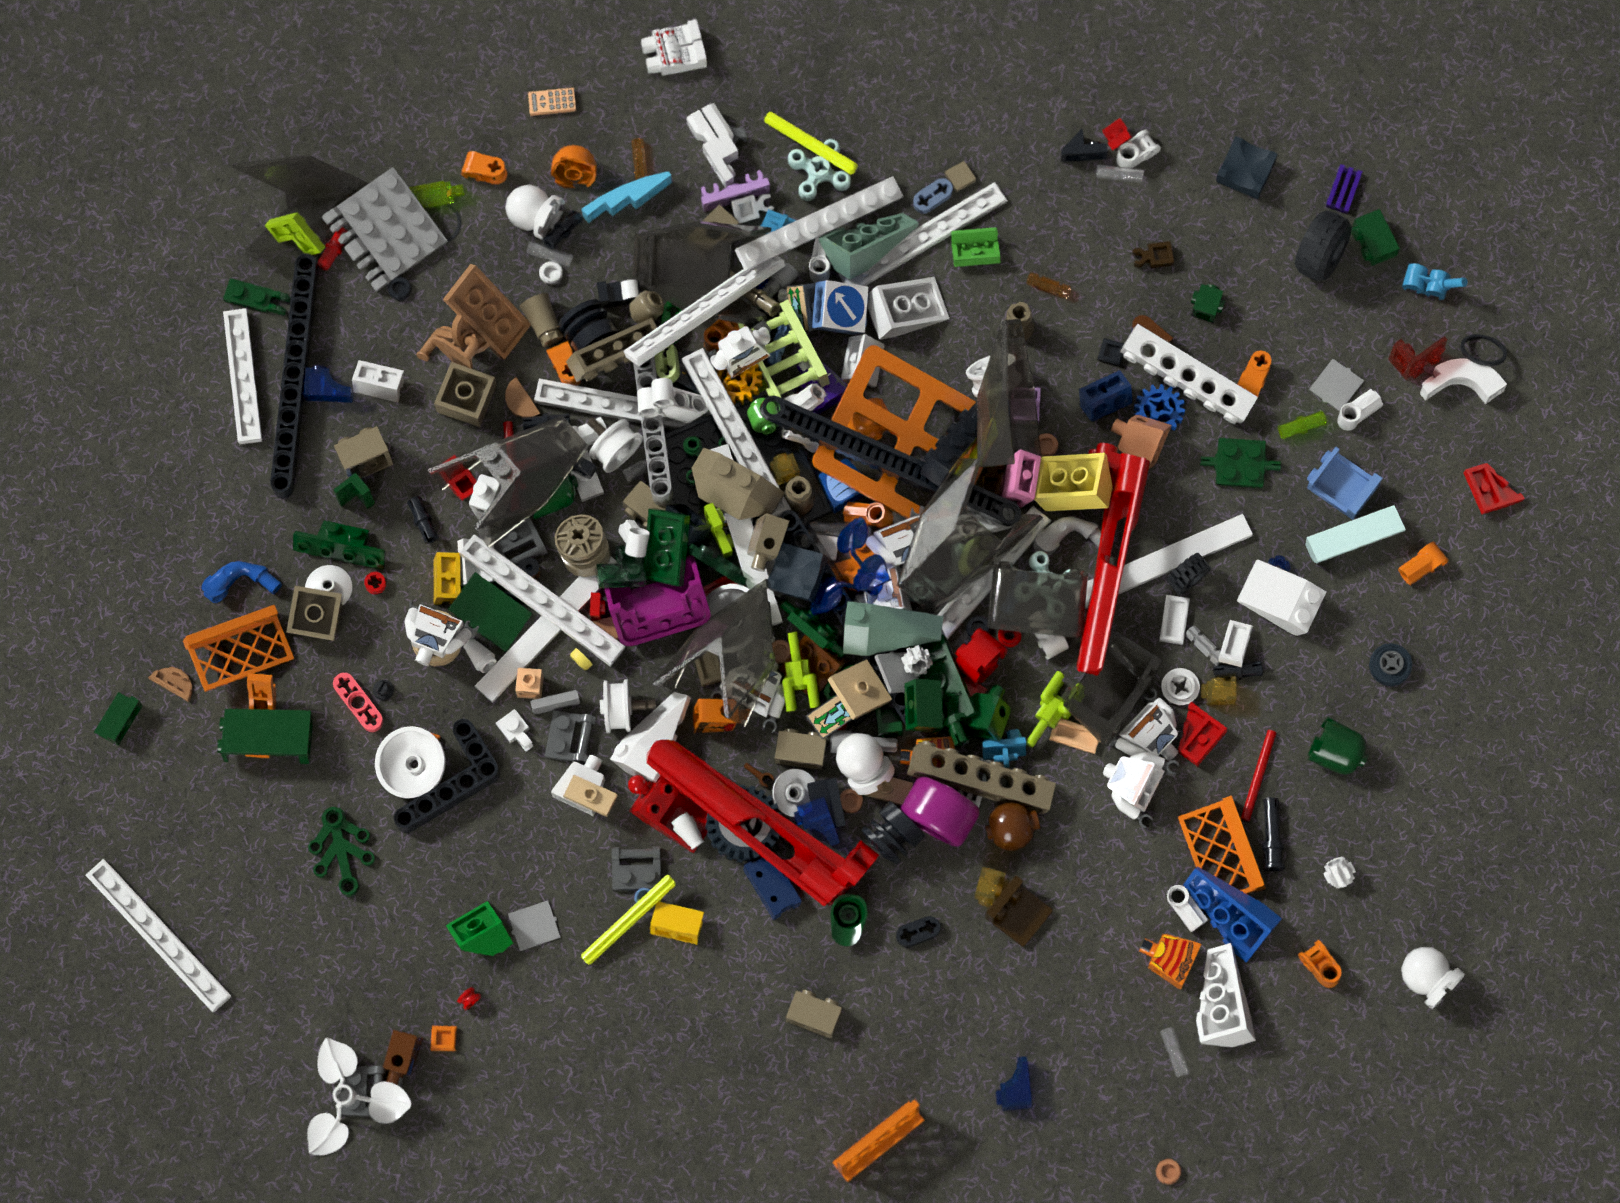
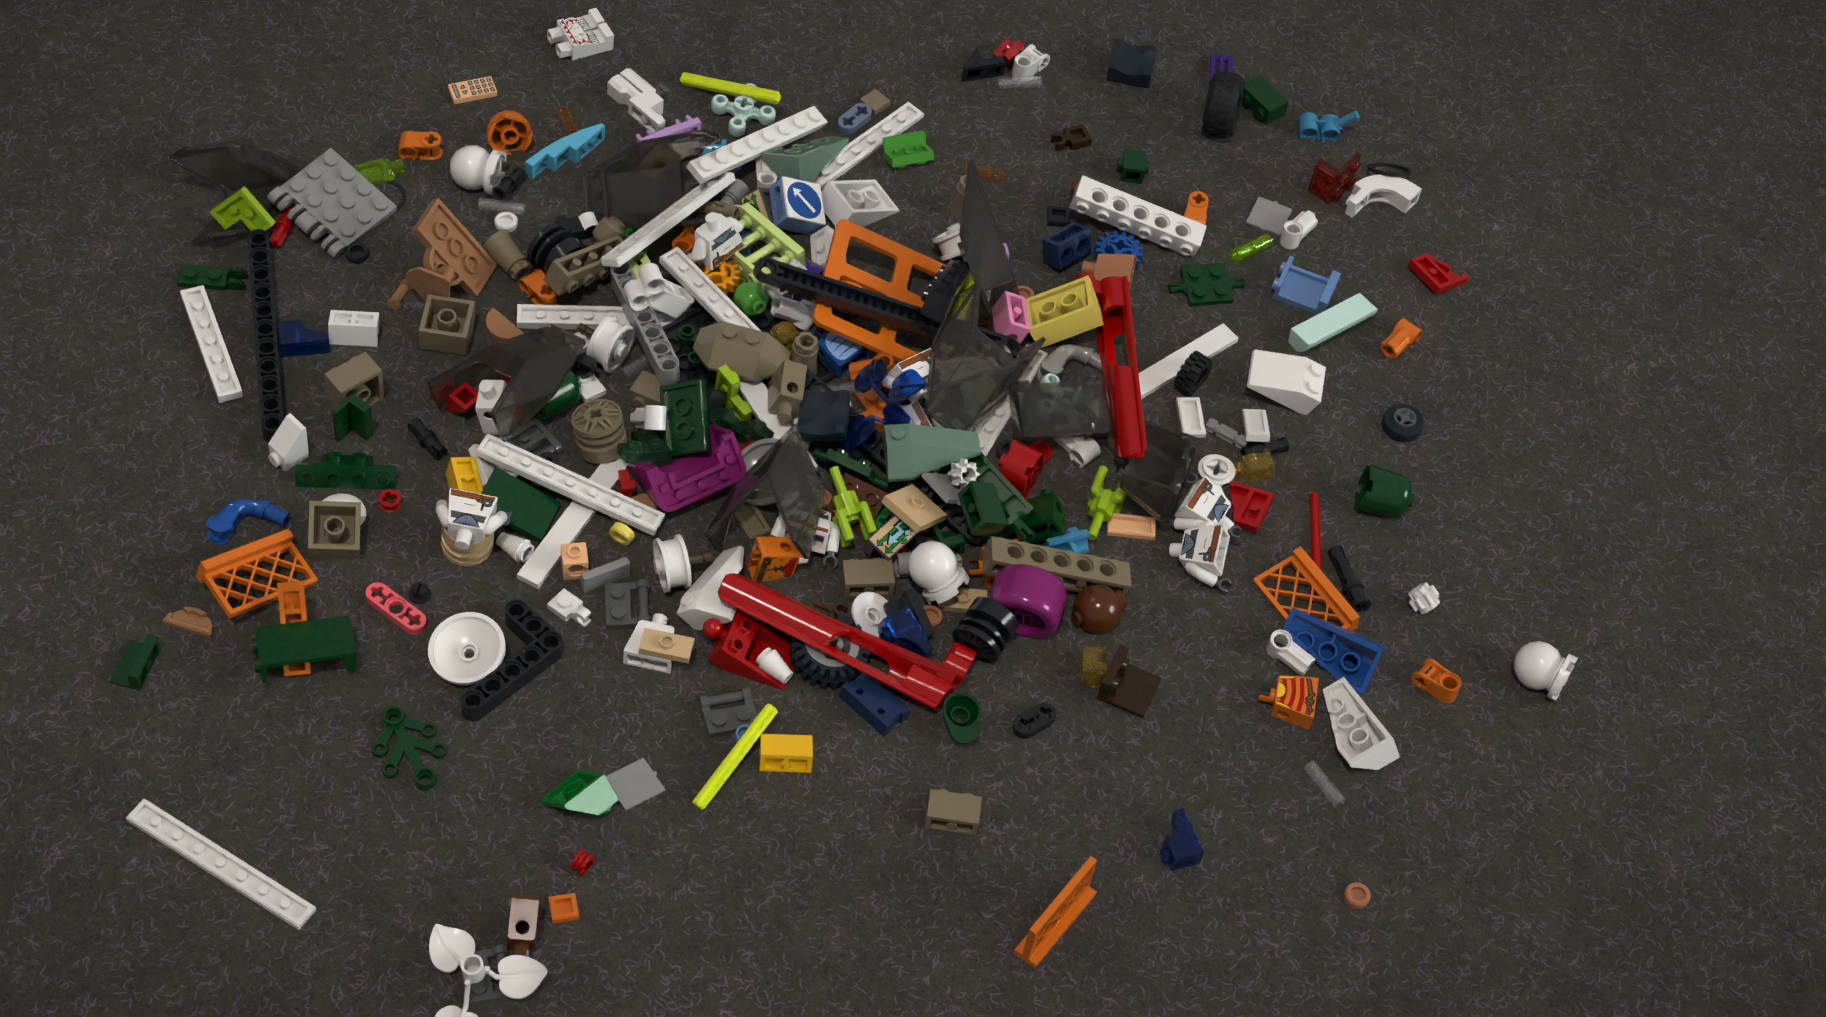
camera: 25 degrees left, 20 degrees down
(290, 510) = (288, 444): none -> white slope

